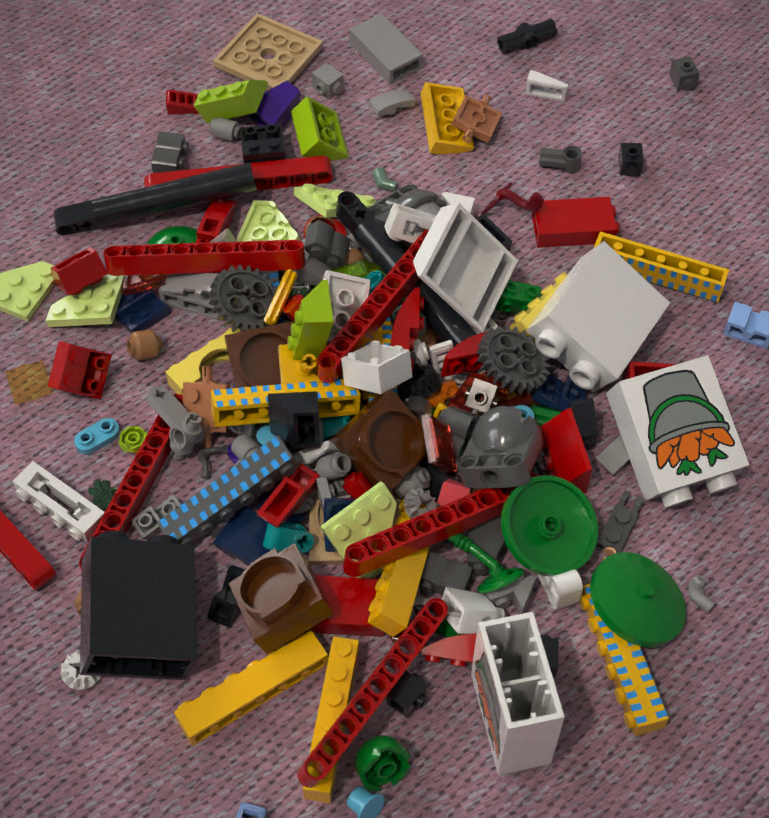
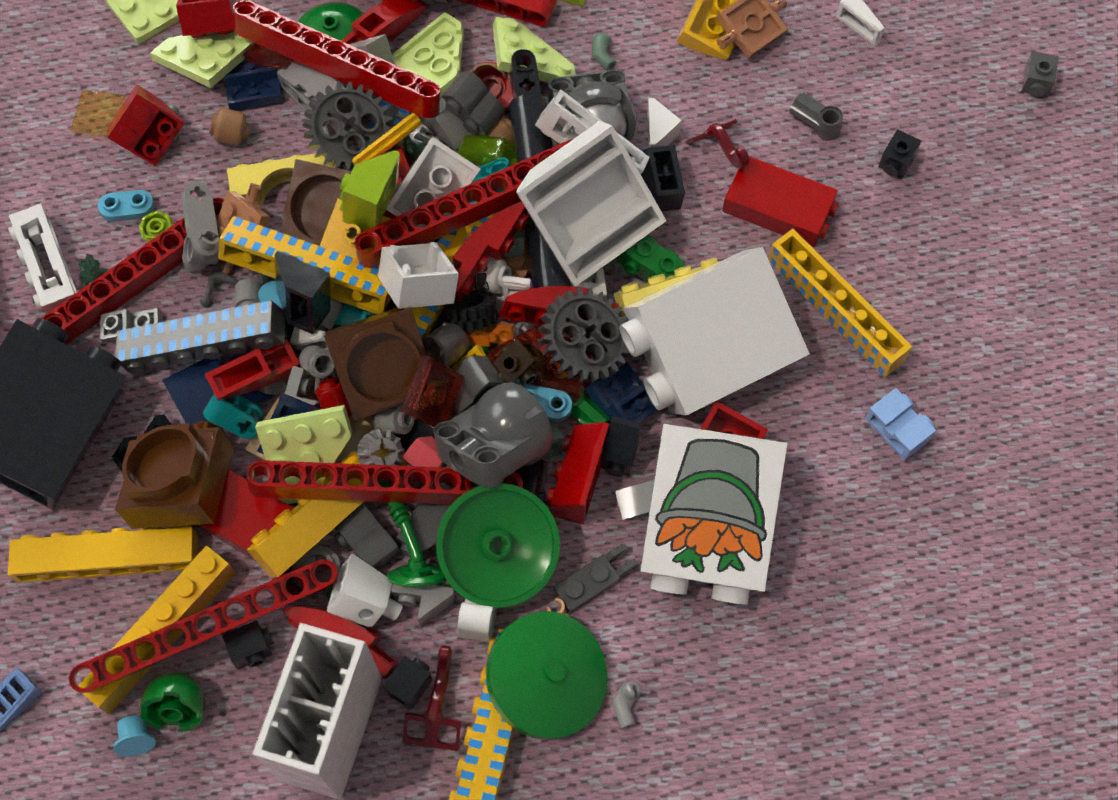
camera: 30 degrees right, 10 degrees up
(576, 669) = (433, 715): none -> dark red piece

